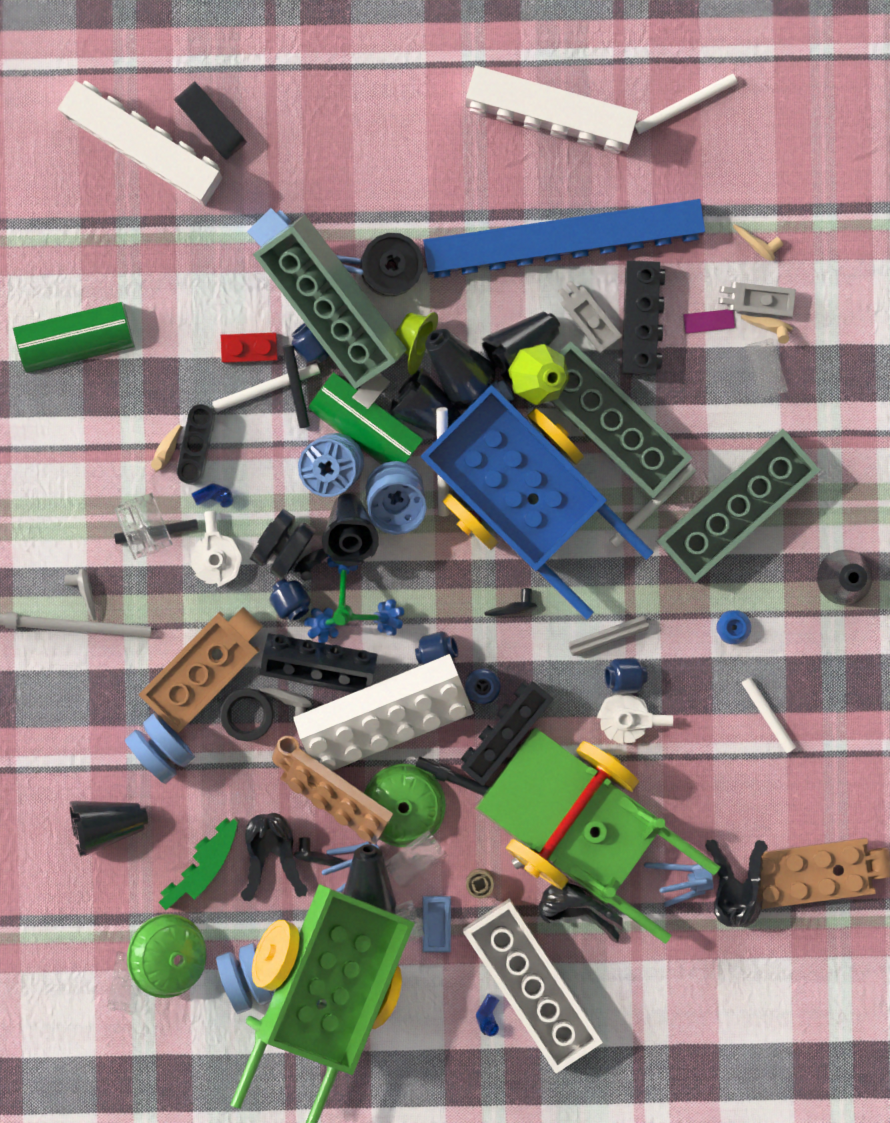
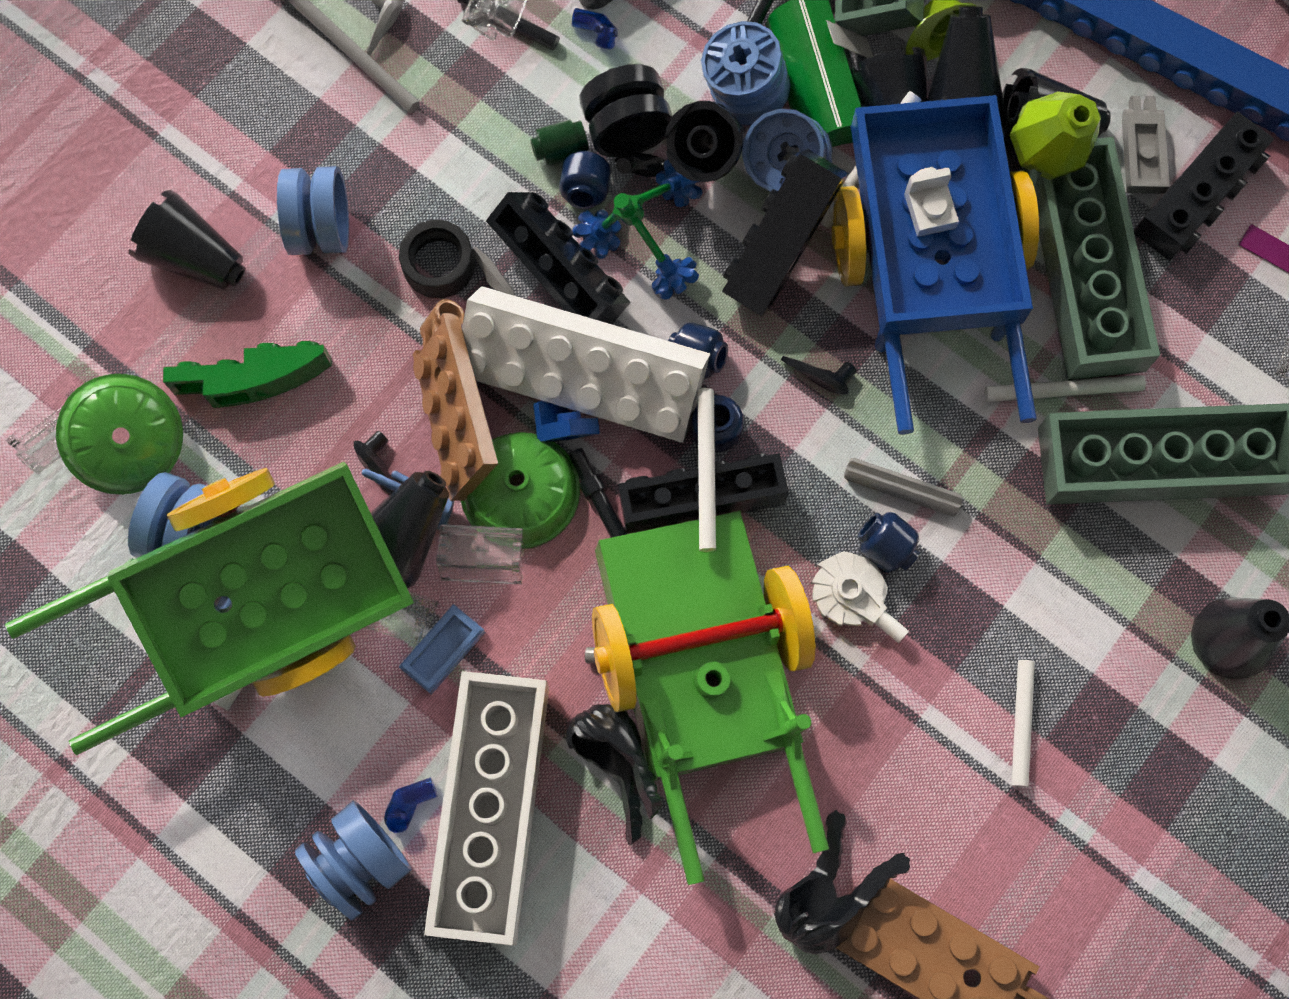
camera: 35 degrees right, 15 degrees down
(195, 675) = (420, 181): medium nougat hinge -> none
(217, 556) = (549, 83): white piece -> none
(255, 588) = (558, 141): none -> dark green brick
(265, 835) = (338, 394): black hair -> none
(402, 756) = (559, 424): none -> blue bracket
(435, 553) = (784, 231): none -> black brick
(478, 879) = (533, 646): dark tan wheel -> none
(487, 1073) = (352, 860): none -> medium blue wheel
(502, 723) = (706, 470): none -> white bar
(504, 477) = (931, 201): none -> white bracket
(698, 881) = (788, 849): medium blue plant -> none
(725, 624) = (1045, 590): blue plate -> none

